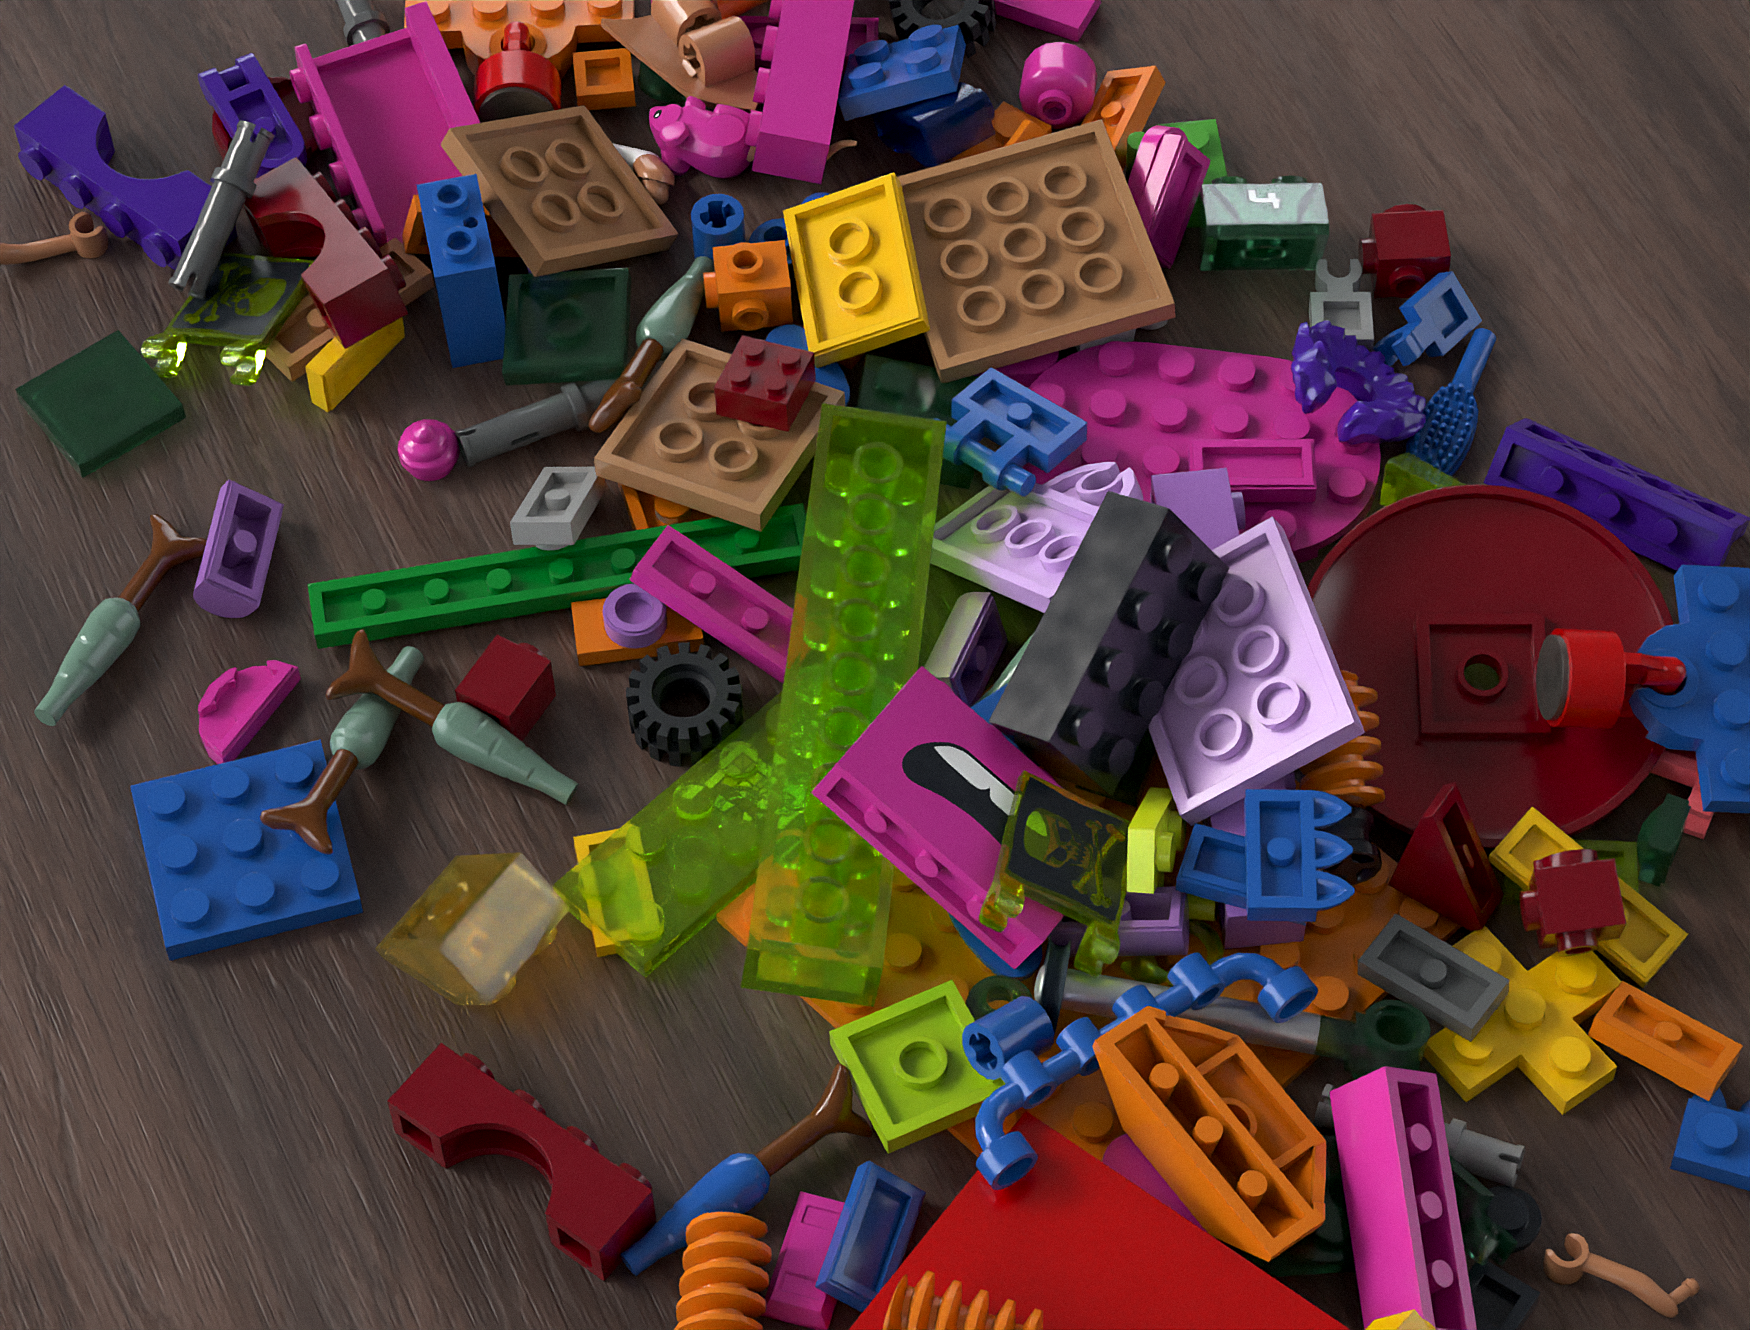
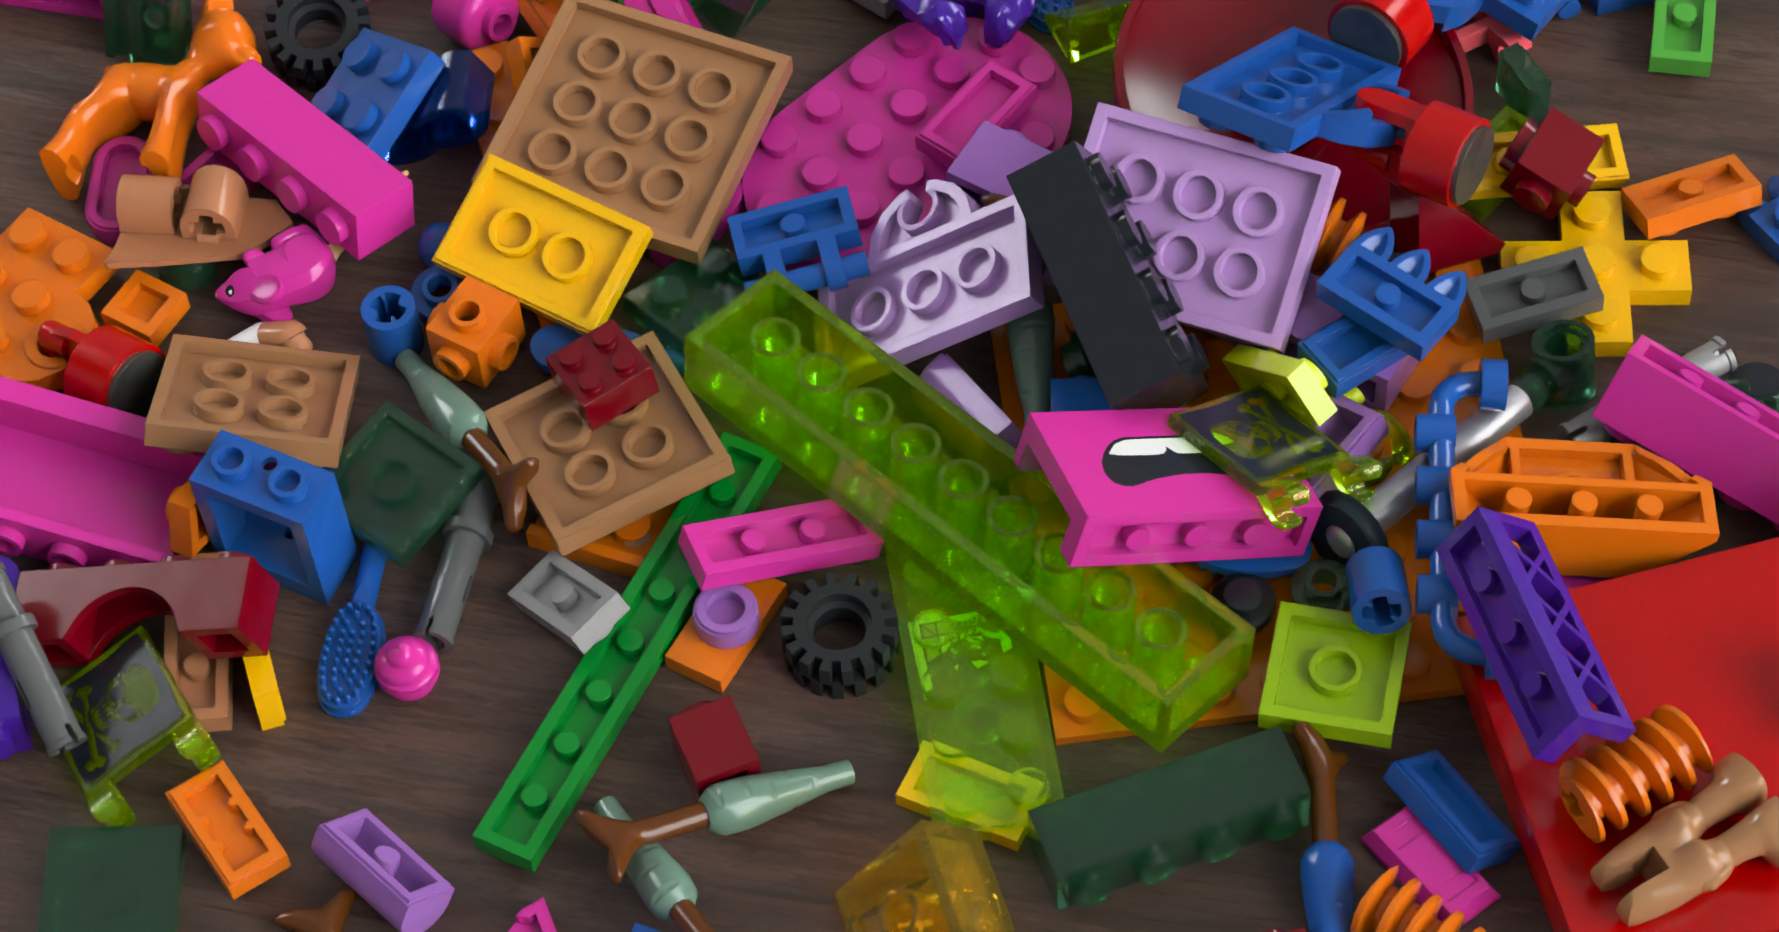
camera: 50 degrees left, 0 degrees up
(200, 435) = (228, 829): none -> orange plate
(434, 398) = (351, 644): none -> blue piece
(694, 1036) = (1169, 818): none -> clear green brick
(936, 957) = (1247, 597): none -> black plate
(1000, 1148) = (1526, 634): none -> dark purple fence
(1446, 681) = (1314, 88): none -> blue plate

